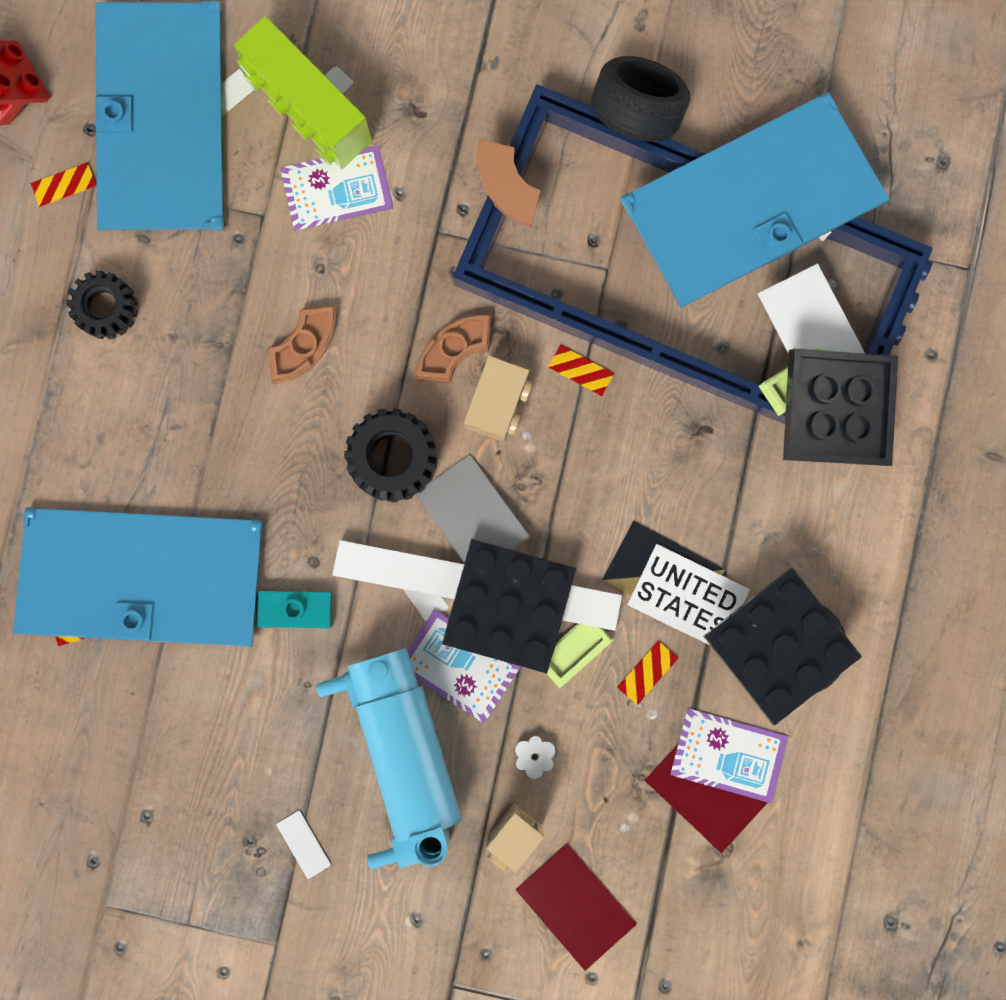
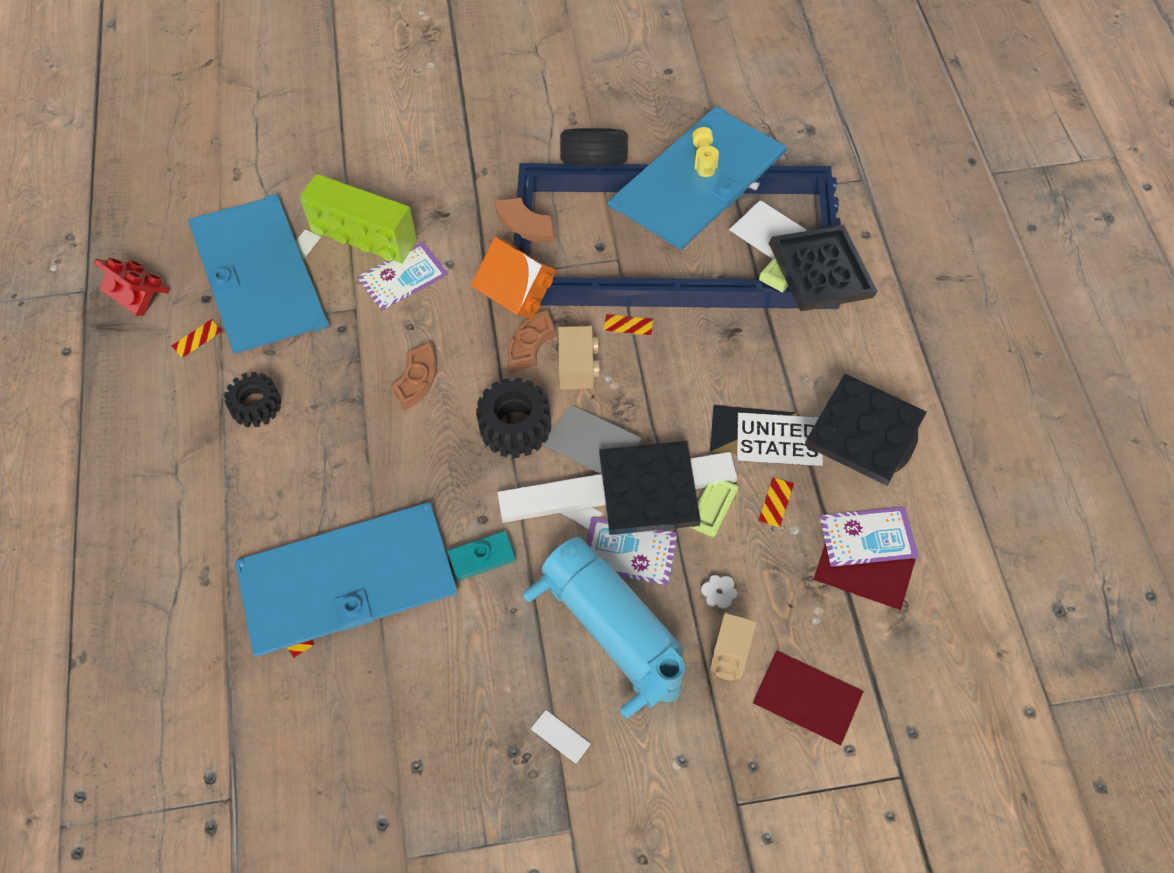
camera: 20 degrees left, 25 degrees down
(458, 266) = (513, 278): none -> orange panel
(774, 182) = (706, 155): none -> light yellow leg

